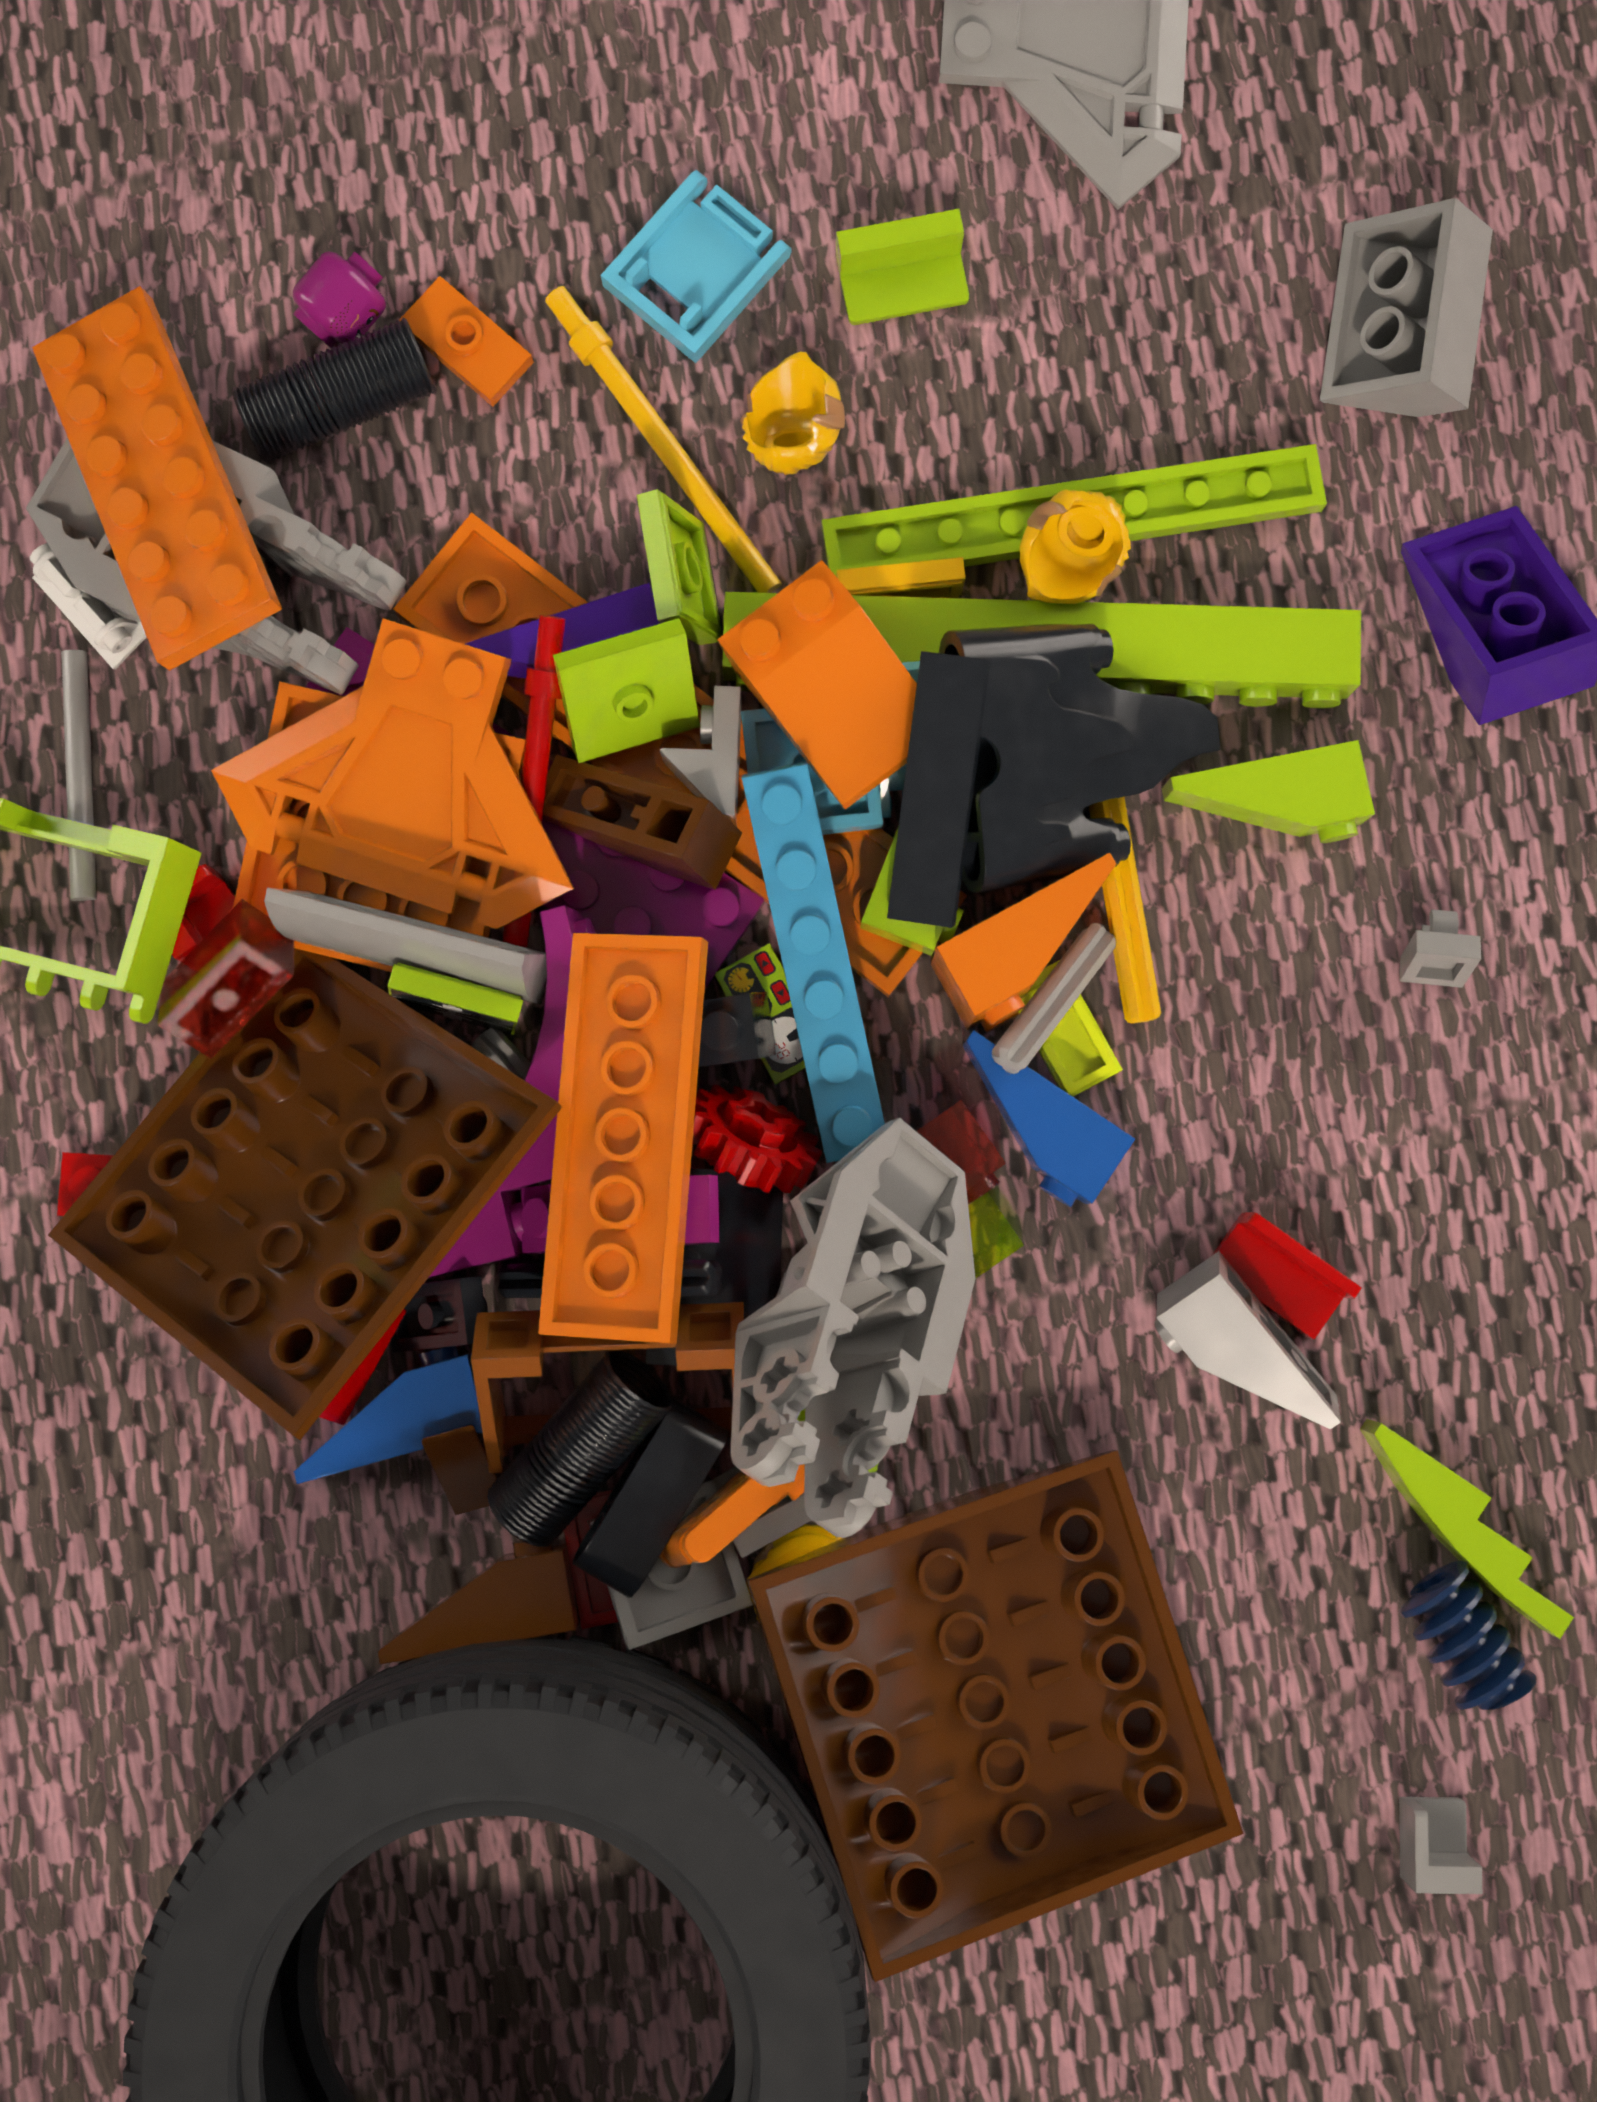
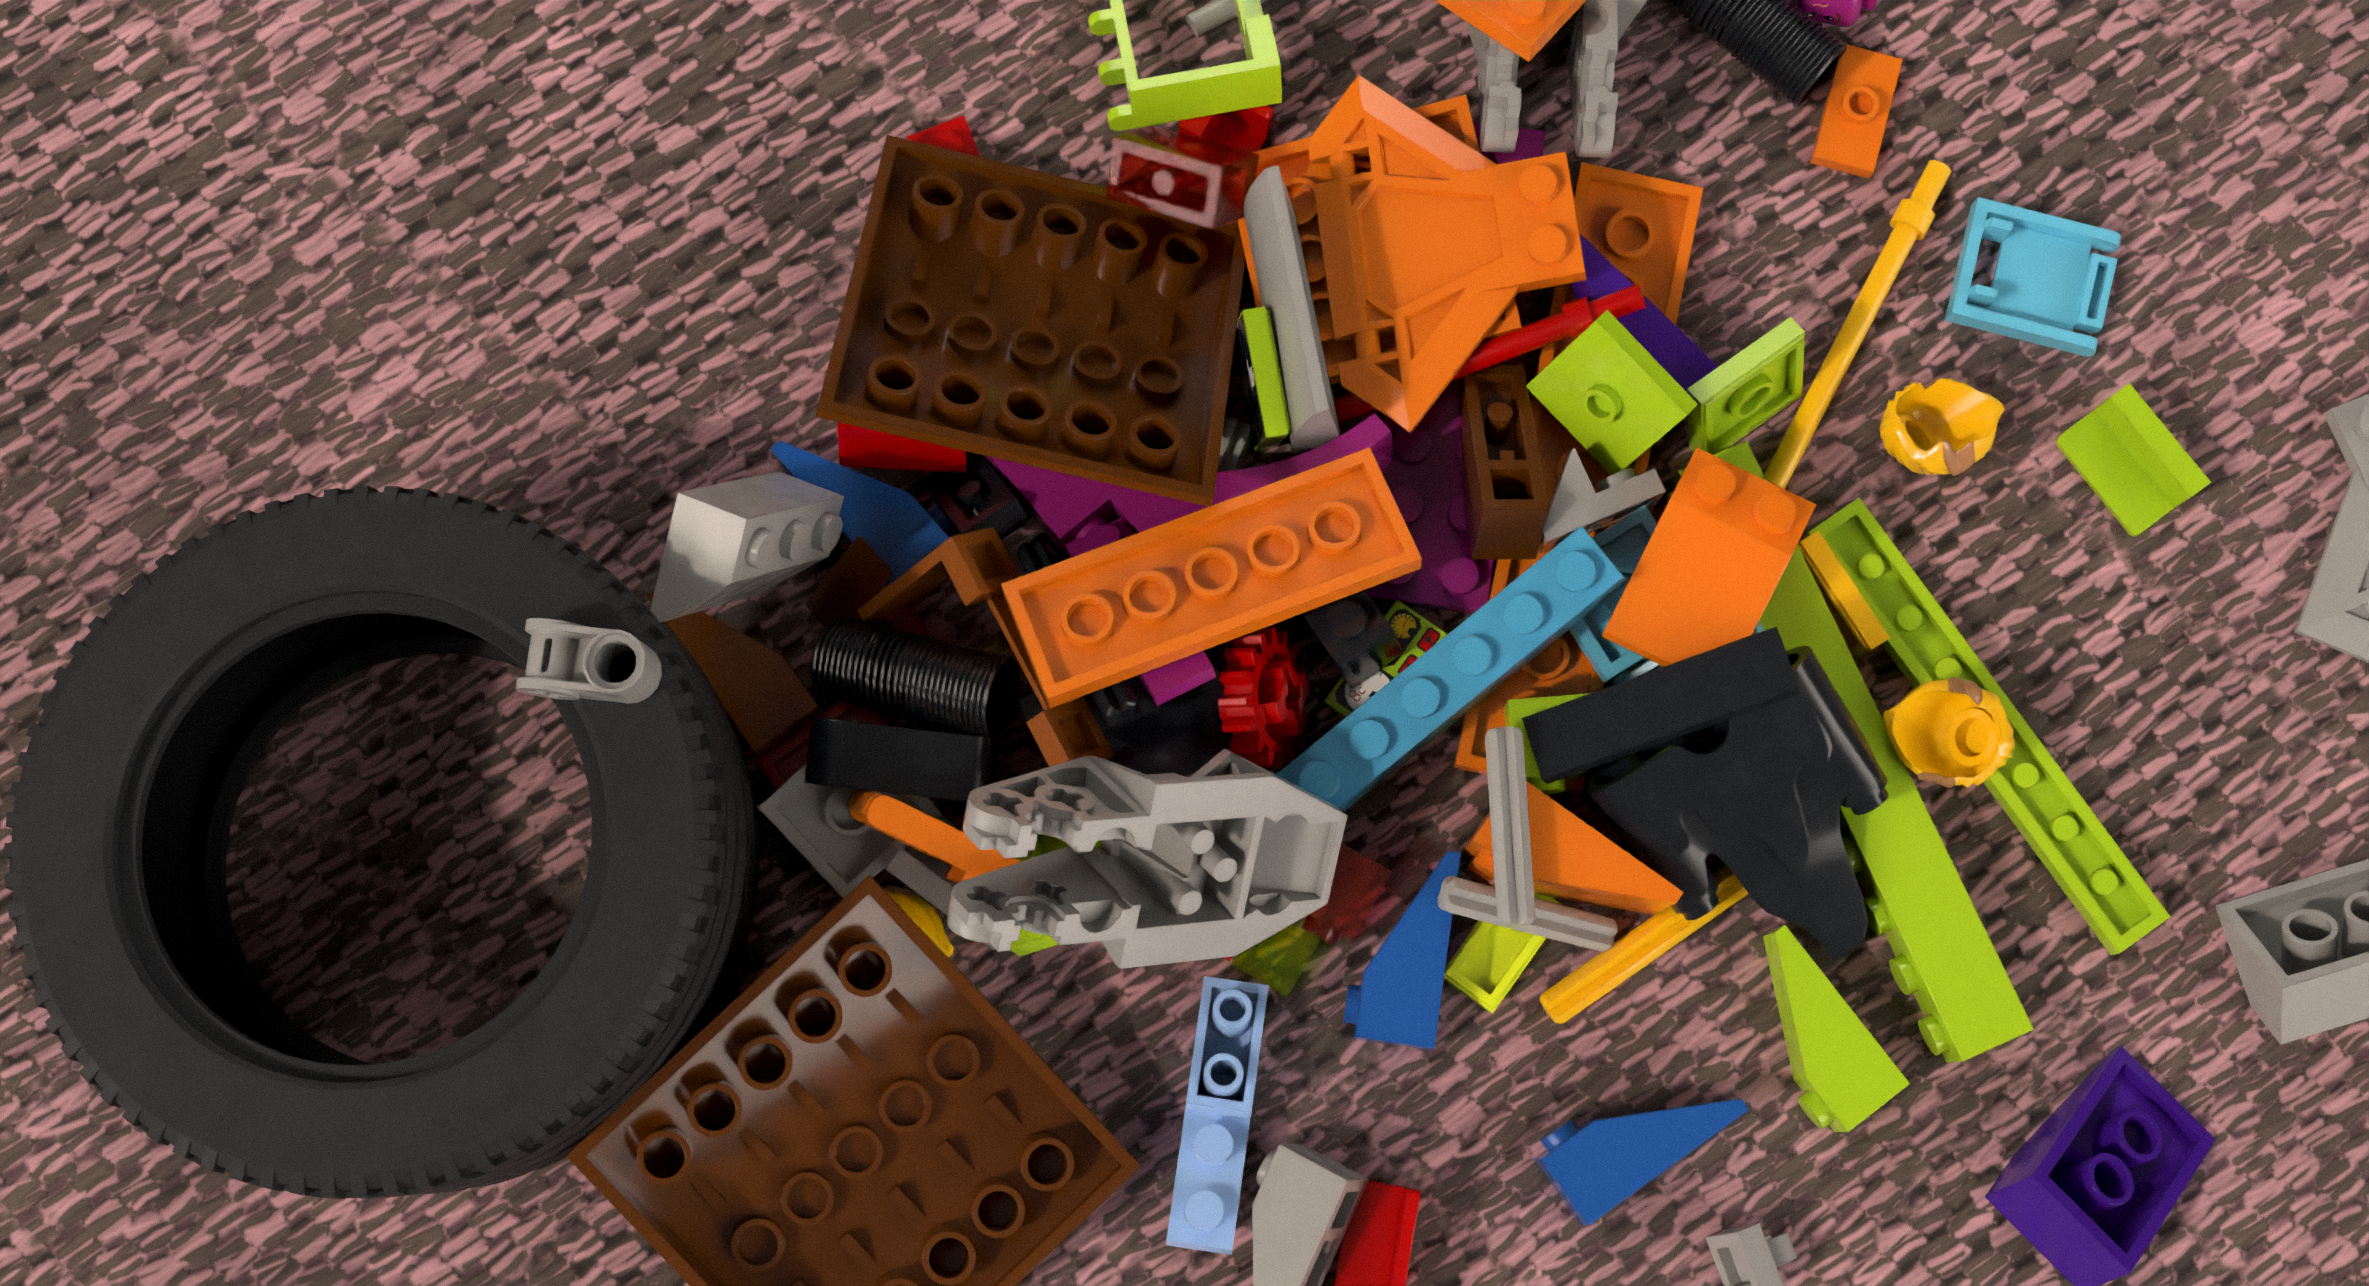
camera: 65 degrees right, 5 degrees down
(374, 1555) = (742, 540): none -> light grey slope
(435, 1783) = (575, 661): none -> light grey piece
(981, 977) = (1510, 826): none -> light grey axle
(1101, 1358) = (1217, 1115): none -> light blue slope
(1299, 1020) = (1618, 1155): none -> blue slope

